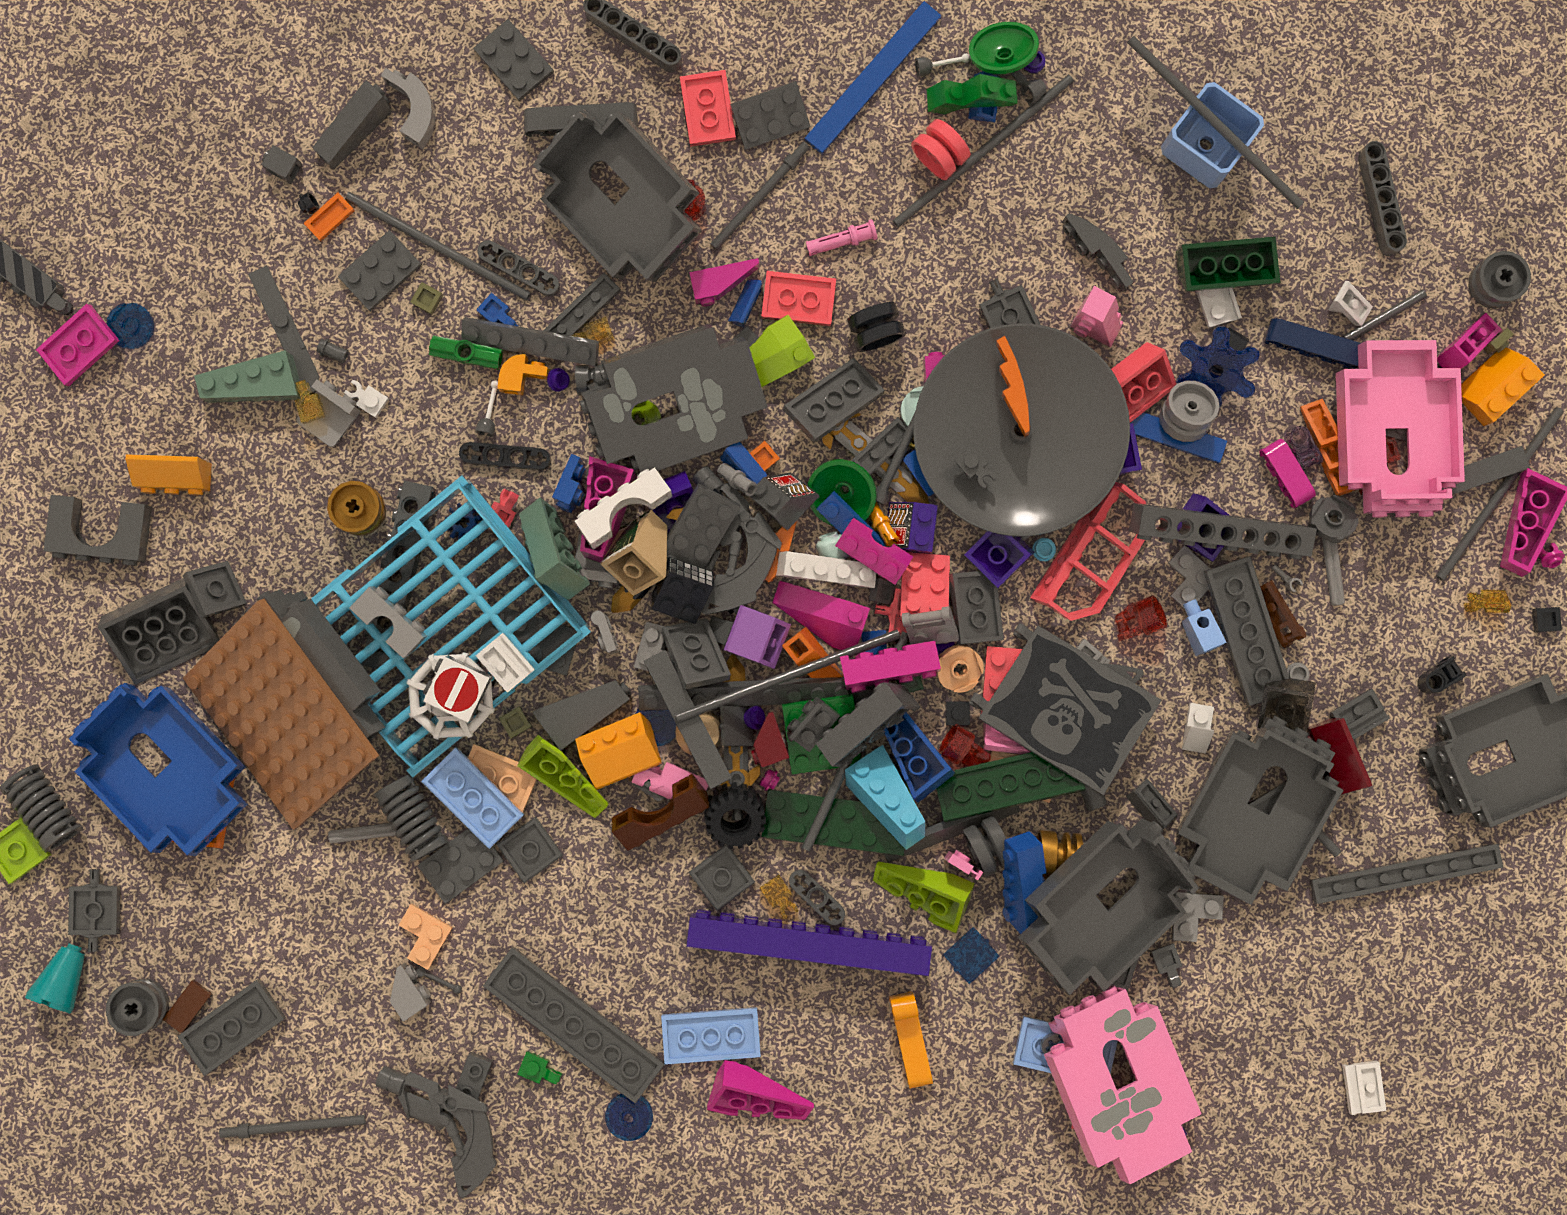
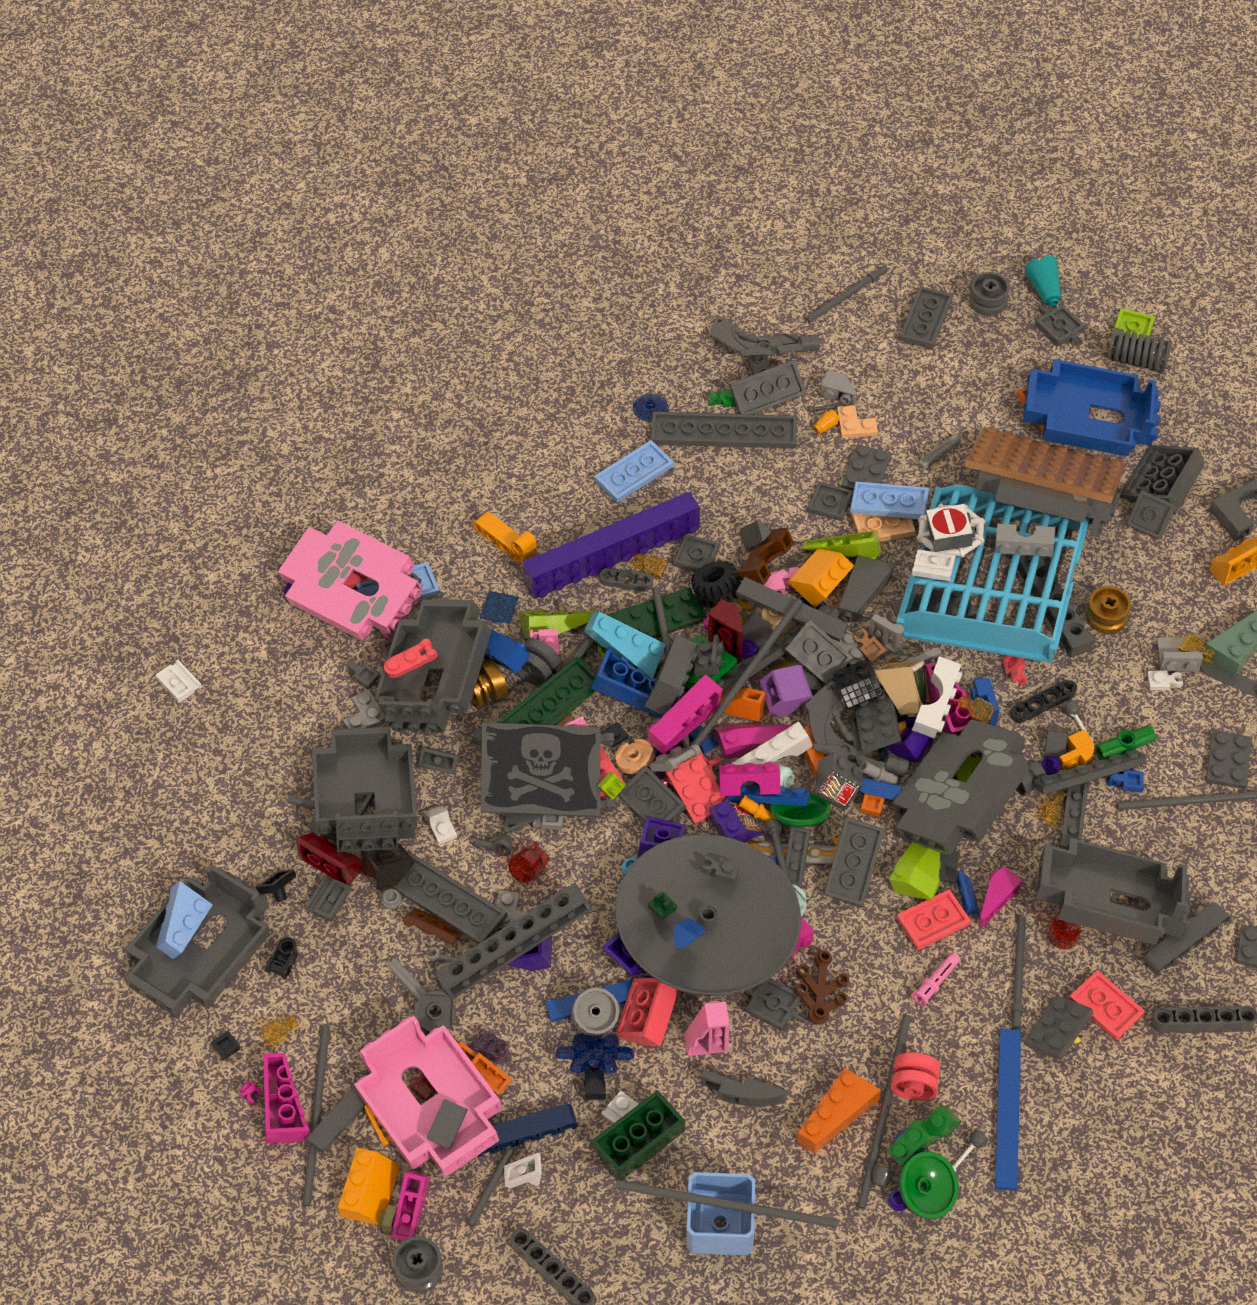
camera: 150 degrees right, 30 degrees down
(187, 1006) = (961, 313): reddish brown tile -> none
(331, 350) = (1212, 692): dark grey pin -> none
(406, 822) = (900, 460): dark grey piece -> none
(426, 298) = (1182, 760): olive plate -> none
(455, 956) = (826, 421): none -> light orange cone
(488, 1044) = (767, 388): none -> dark grey plate
(515, 722) = (900, 558): olive plate -> none
(520, 266) = (1139, 815): dark grey beam -> none
(530, 403) = (1055, 741): none -> dark grey slope
(551, 550) = (956, 643): sand green wedge -> none
(590, 469) = (979, 709): none -> clear yellow plate
(629, 633) = (871, 647): none -> medium nougat plate
(649, 850) = (754, 533): none -> dark grey slope
(744, 1088) = (595, 454): dark pink wedge -> none
(876, 326) = (863, 926): black wheel -> none
(956, 300) = (819, 988): none -> reddish brown plant
(960, 747) = (599, 711): clear red piece -> none
(1007, 646) = (611, 785): none -> lime tile
(1015, 393) = (729, 926): orange slope -> none
(1030, 172) = (840, 1106): none -> orange wedge
(1061, 412) = (687, 932): none -> blue tile
(1064, 460) = (662, 906): none -> dark green tile
(1072, 552) = (611, 875): coral plate -> none
(1129, 926) = (410, 659): none -> coral plate
(1152, 661) = (504, 841): none -> dark grey bar
(1204, 638) = (481, 877): light blue torso -> none
(1288, 472) = (483, 1018): dark pink beam -> none
(1403, 382) = (447, 1124): none -> dark grey slope
(1405, 762) = (276, 883): none -> black tile
(1406, 873) = (228, 821): dark grey plate -> none
(1525, 776) = (182, 919): none -> light blue wedge

